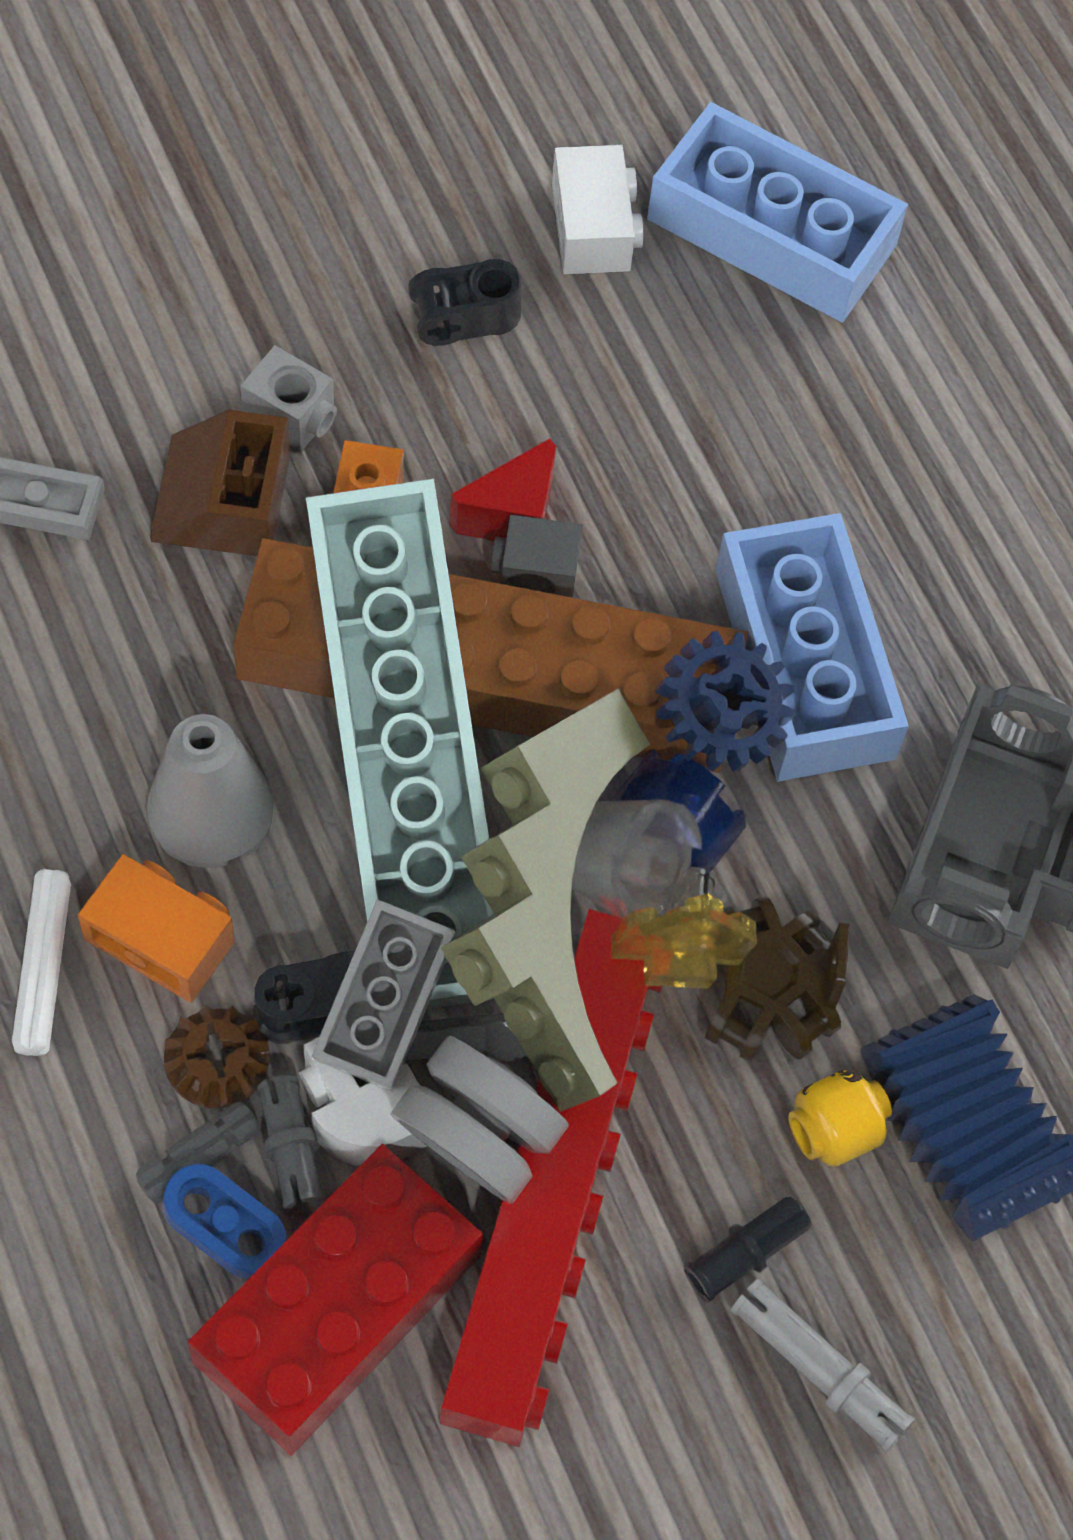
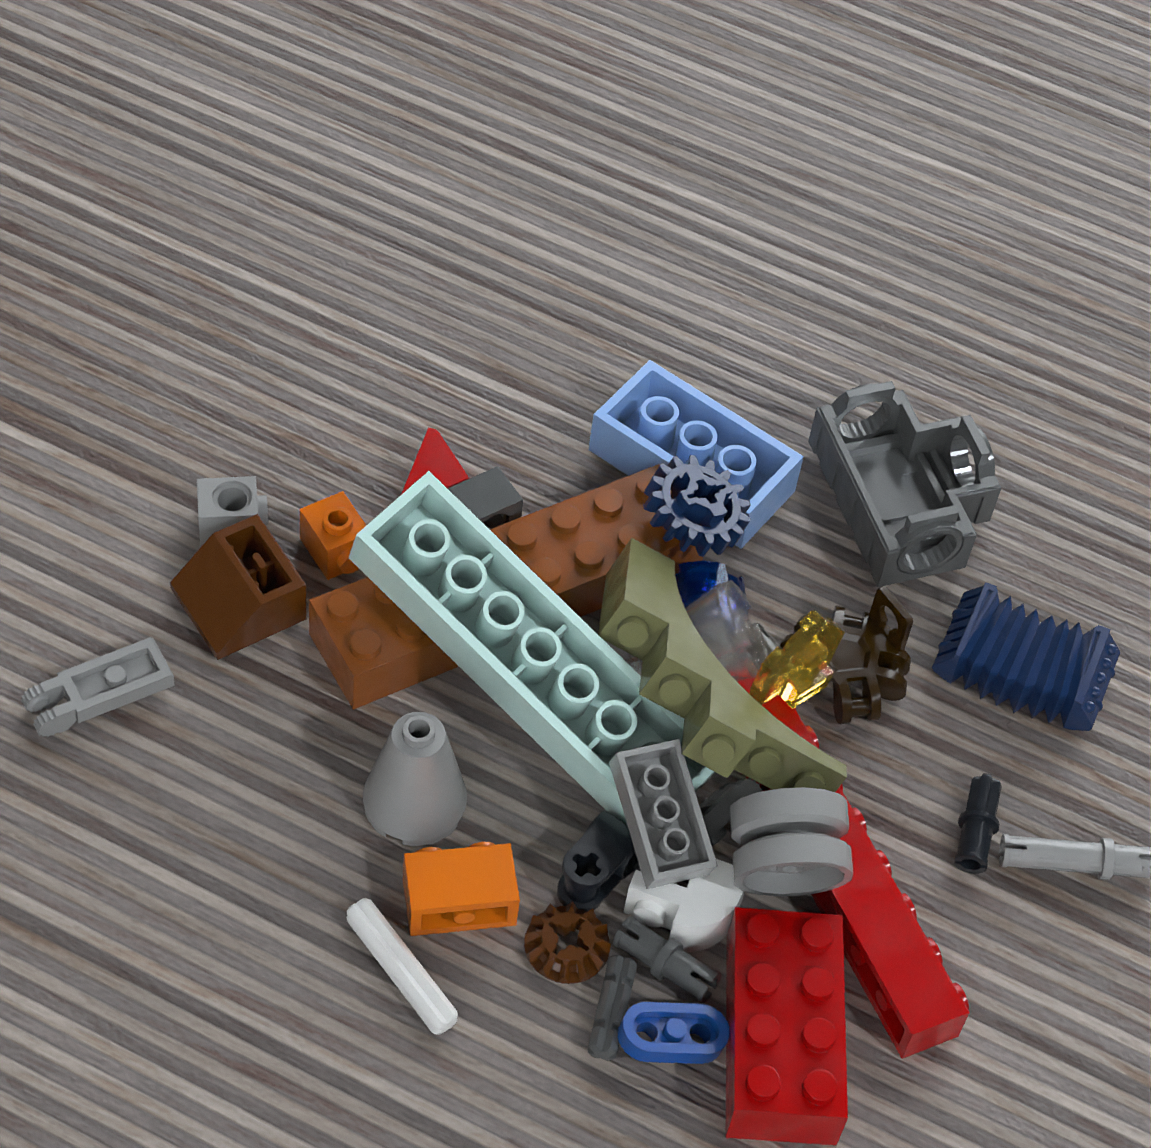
camera: 40 degrees left, 10 degrees down
(466, 301) = (286, 380): black piece -> none
(595, 209) = (313, 278): white brick -> none
(776, 211) = (433, 211): light blue brick -> none
(840, 1117) = (960, 712): yellow head -> none

